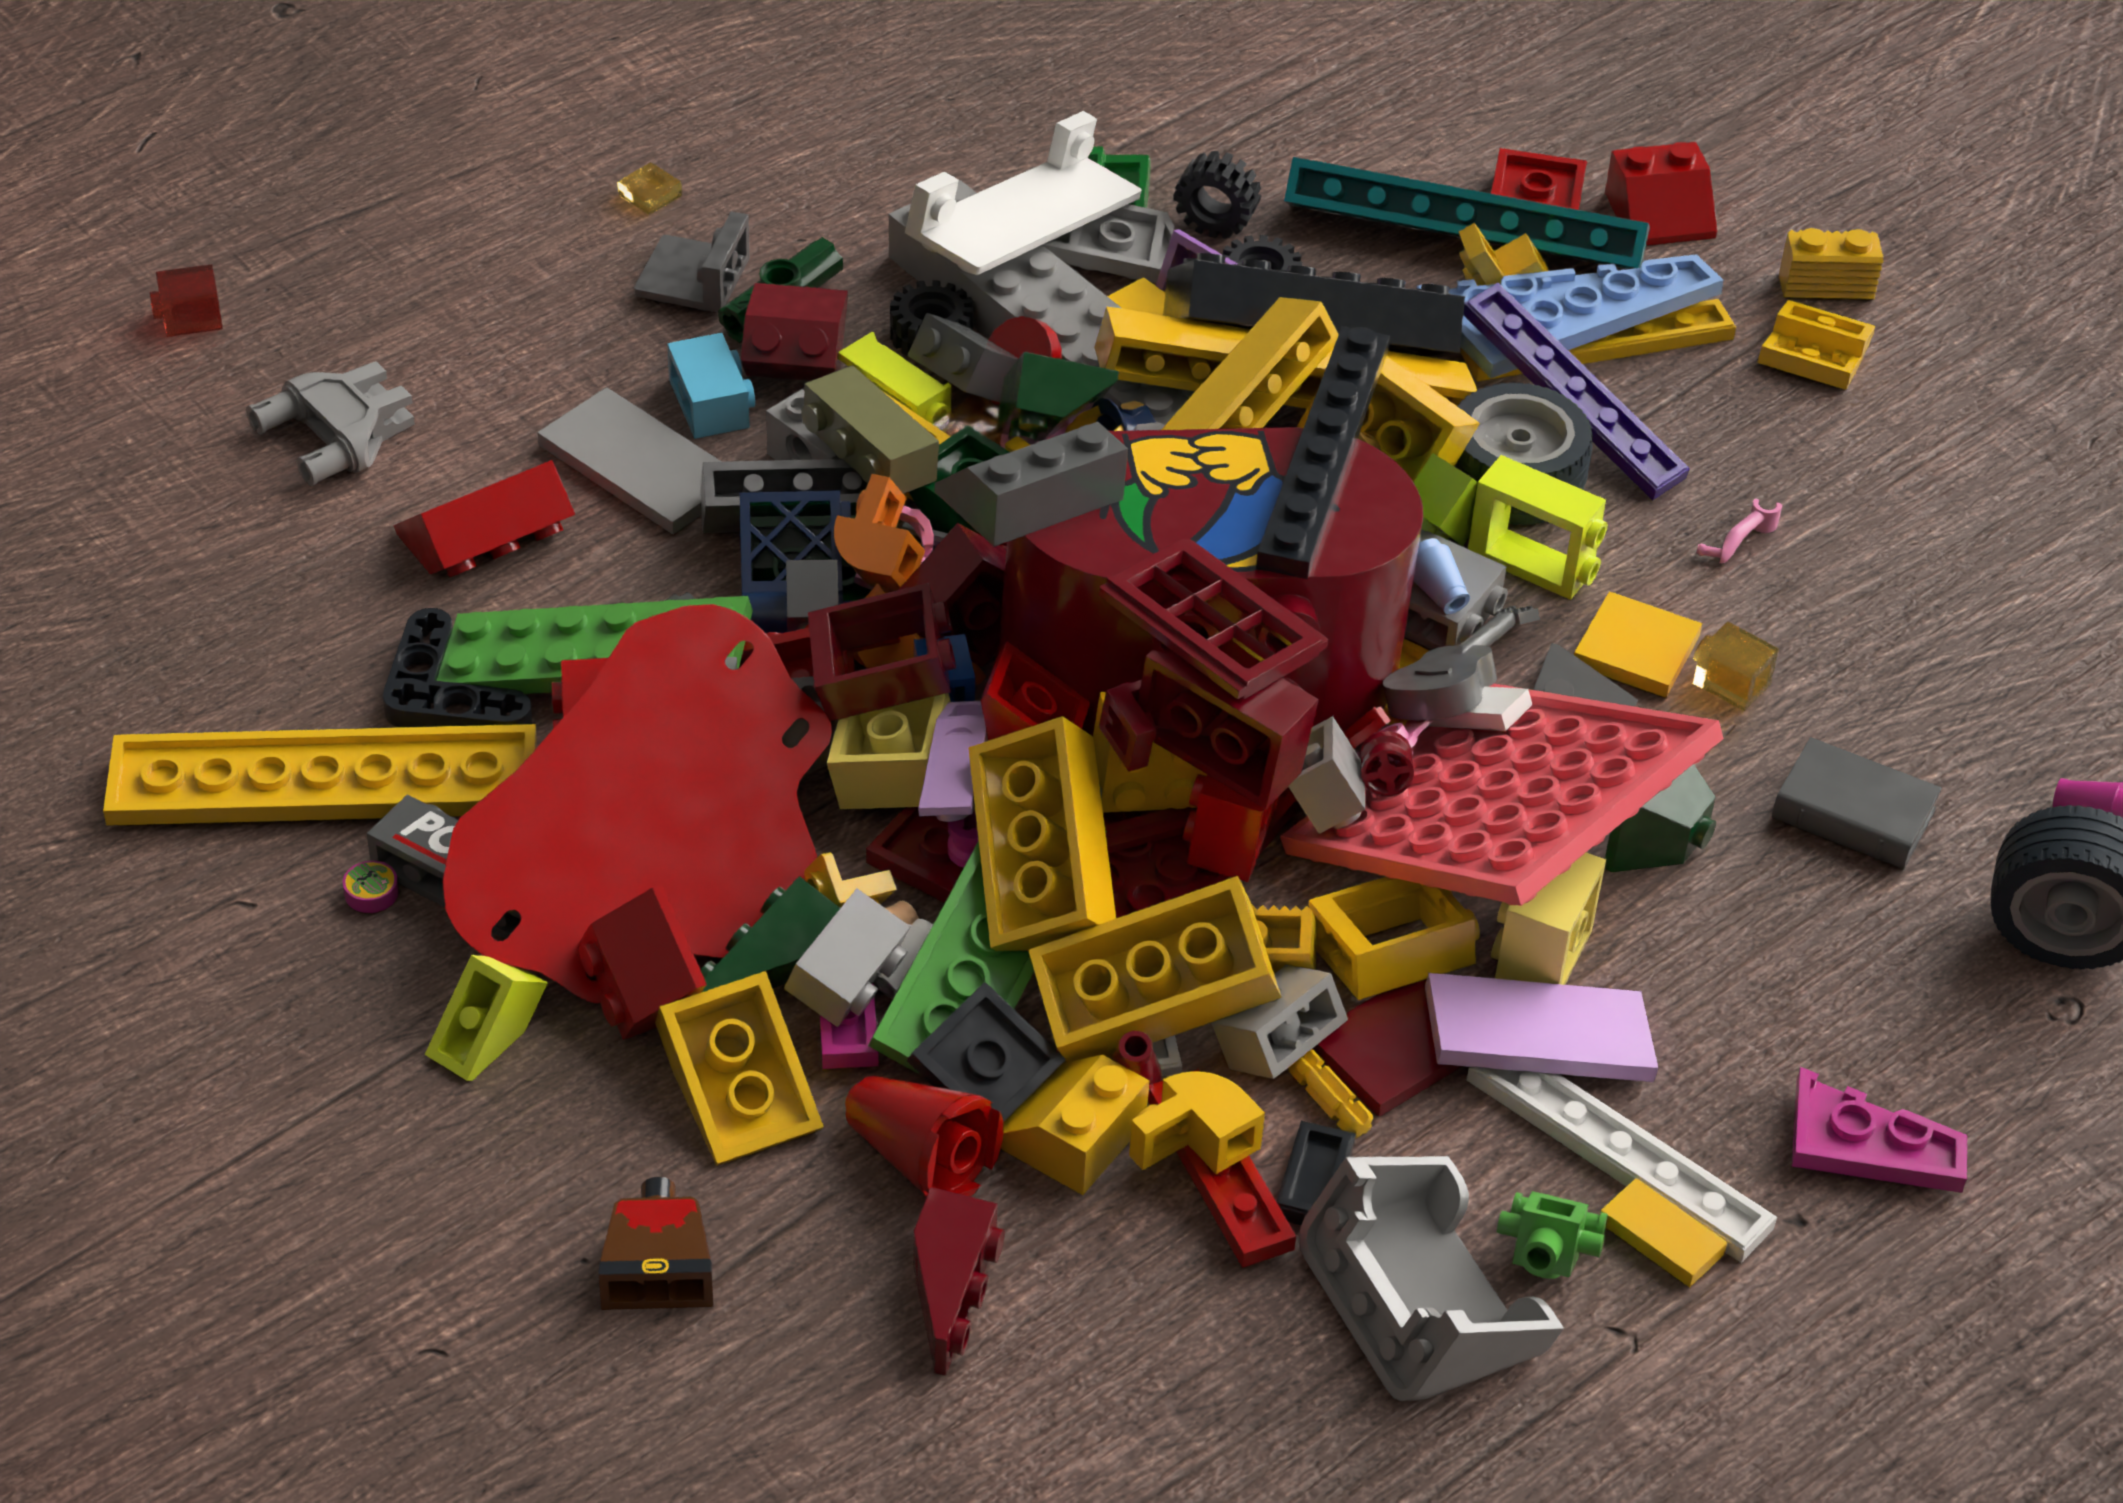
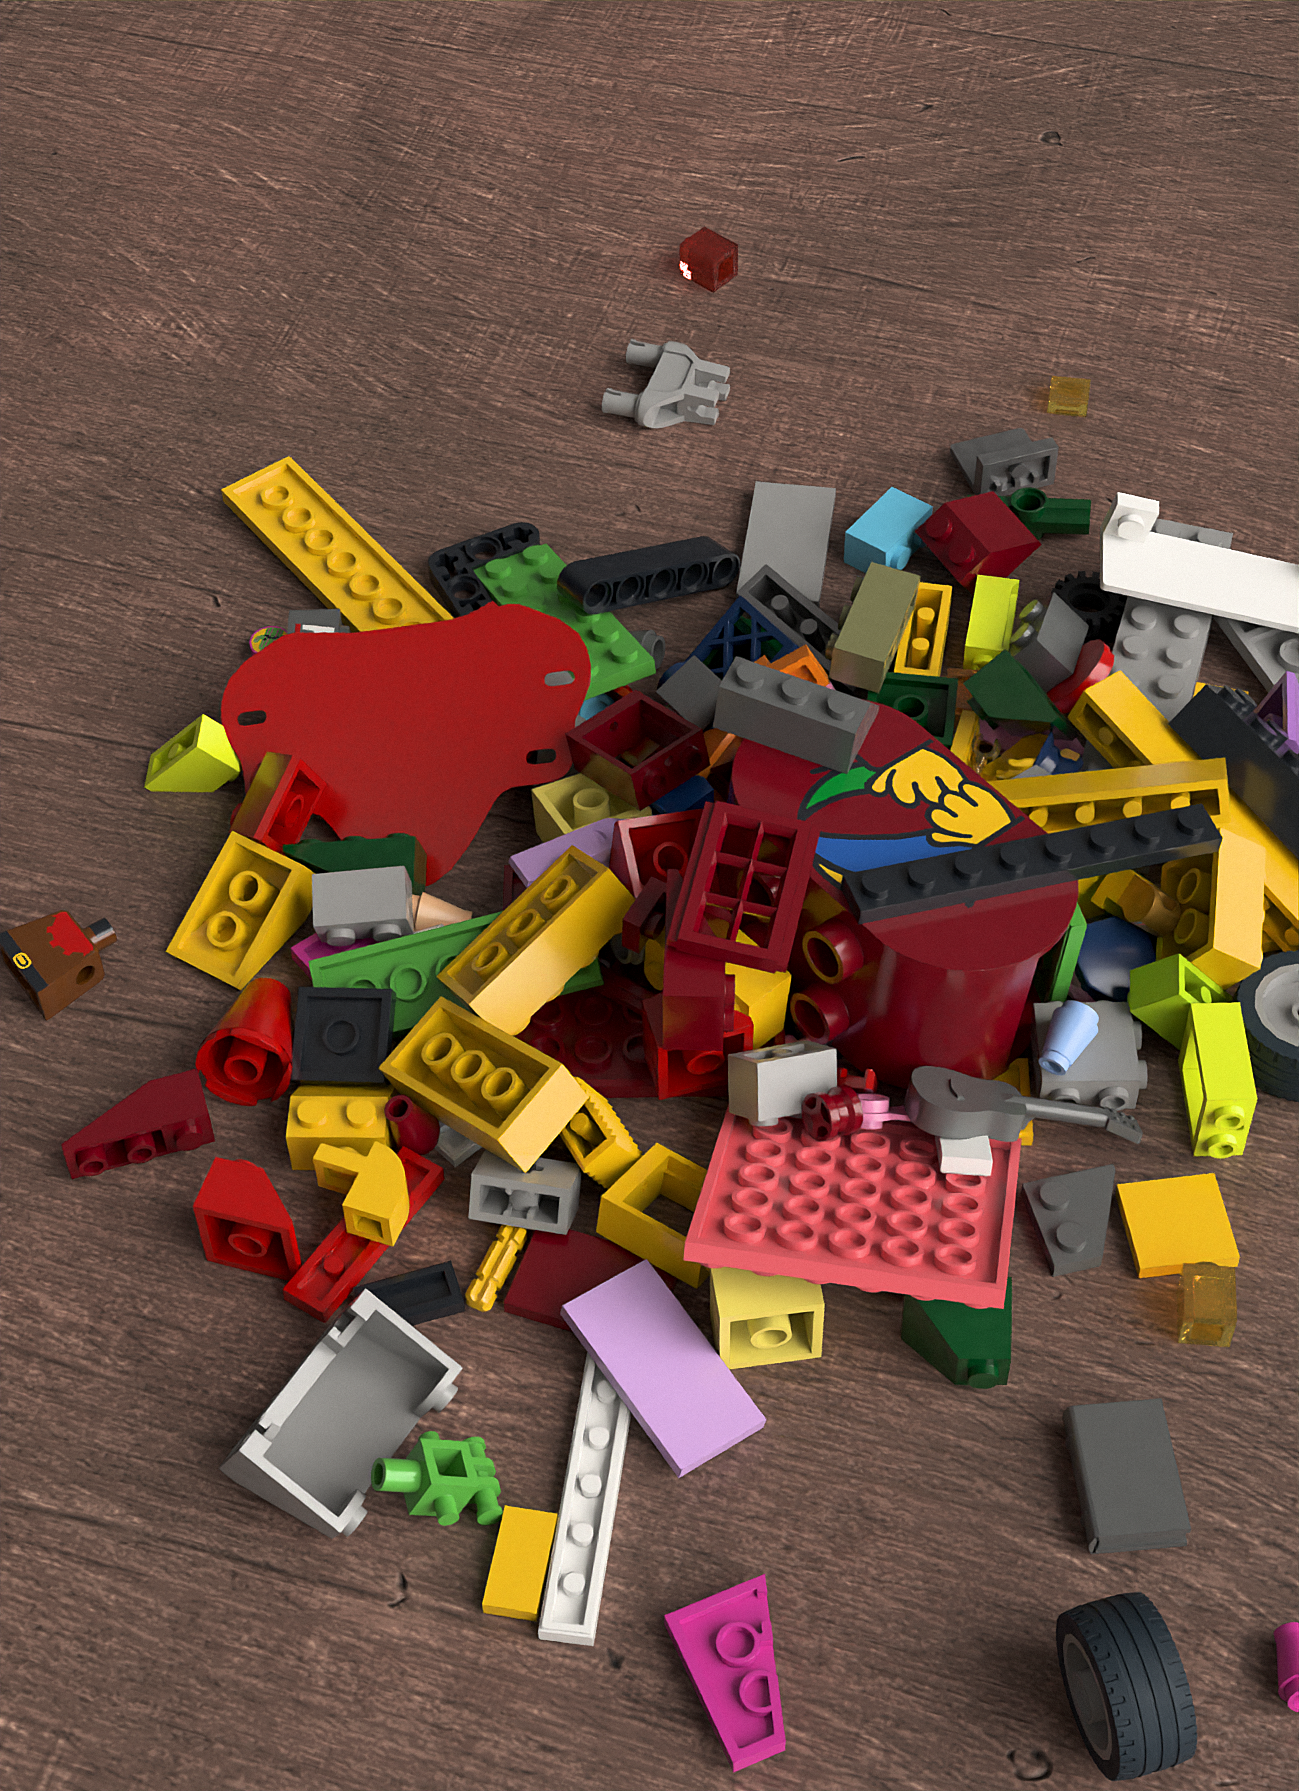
camera: 60 degrees right, 5 degrees up
(488, 520) = (640, 505): red slope -> none
(612, 553) = (648, 574): none -> black beam
(825, 877) = (451, 886): yellow bracket -> none
(1160, 1229) = (245, 1221): none -> red slope

